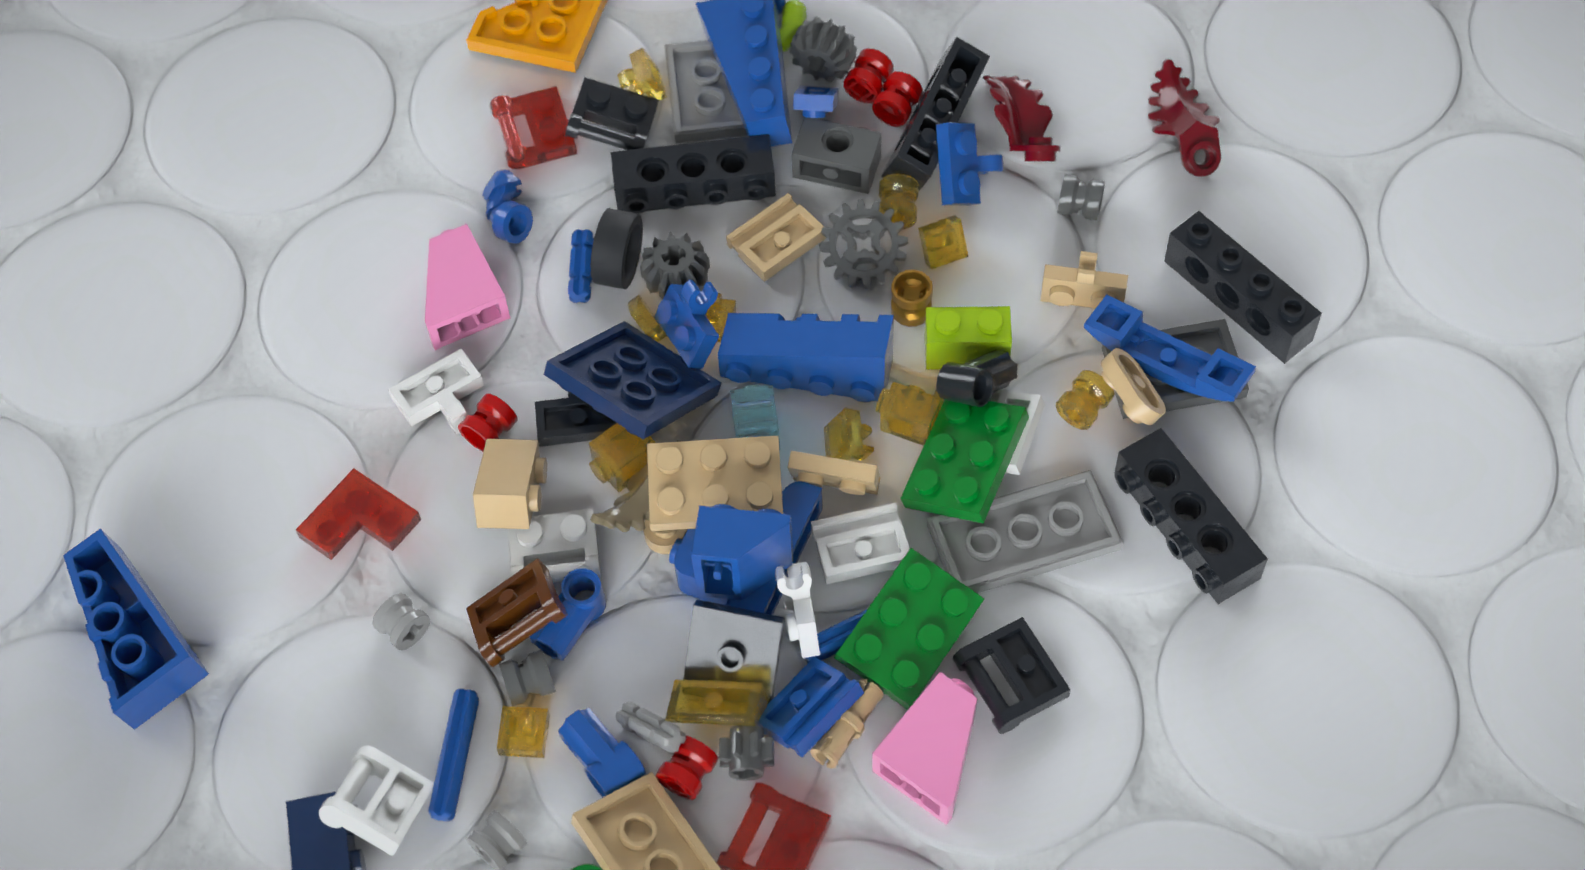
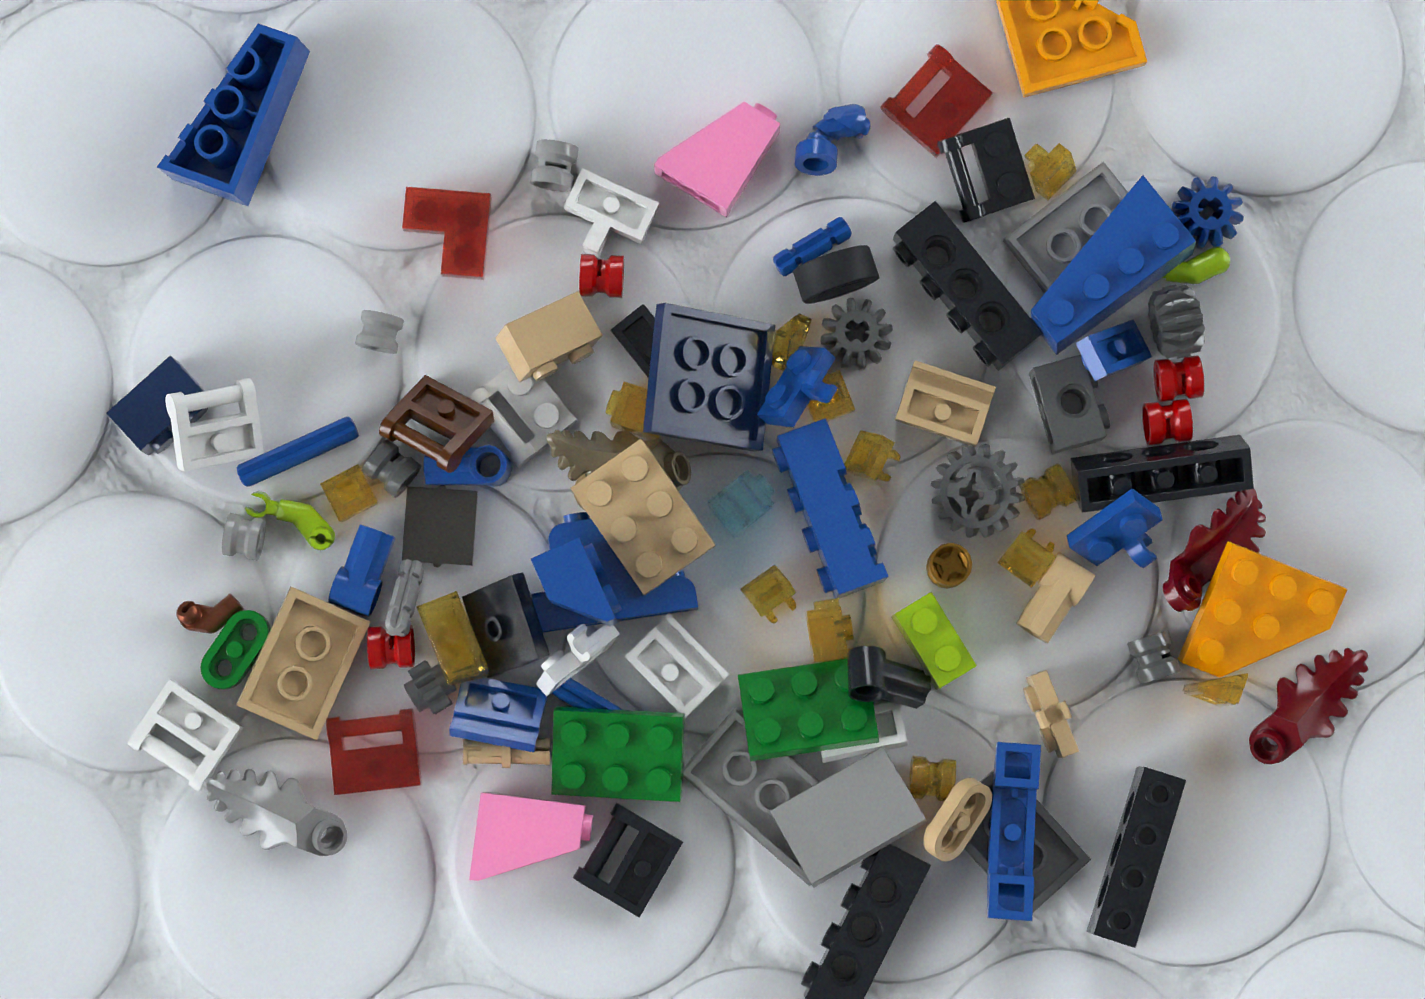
camera: 55 degrees right, 25 degrees up
(367, 408) = (554, 165): none -> light grey wheel
(515, 782) = (302, 515): none -> lime arm
(606, 673) = (440, 525): none -> clear smoke piece
(782, 299) = (870, 455): none -> clear yellow tile
(843, 474) = (728, 621): tan plate -> none
(988, 241) = (1058, 591): none -> tan piece
(1080, 470) = (848, 816): none -> light grey tile
(1087, 114) = (1256, 611): none -> light orange plate
(1137, 158) = (1219, 691): none -> clear yellow slope

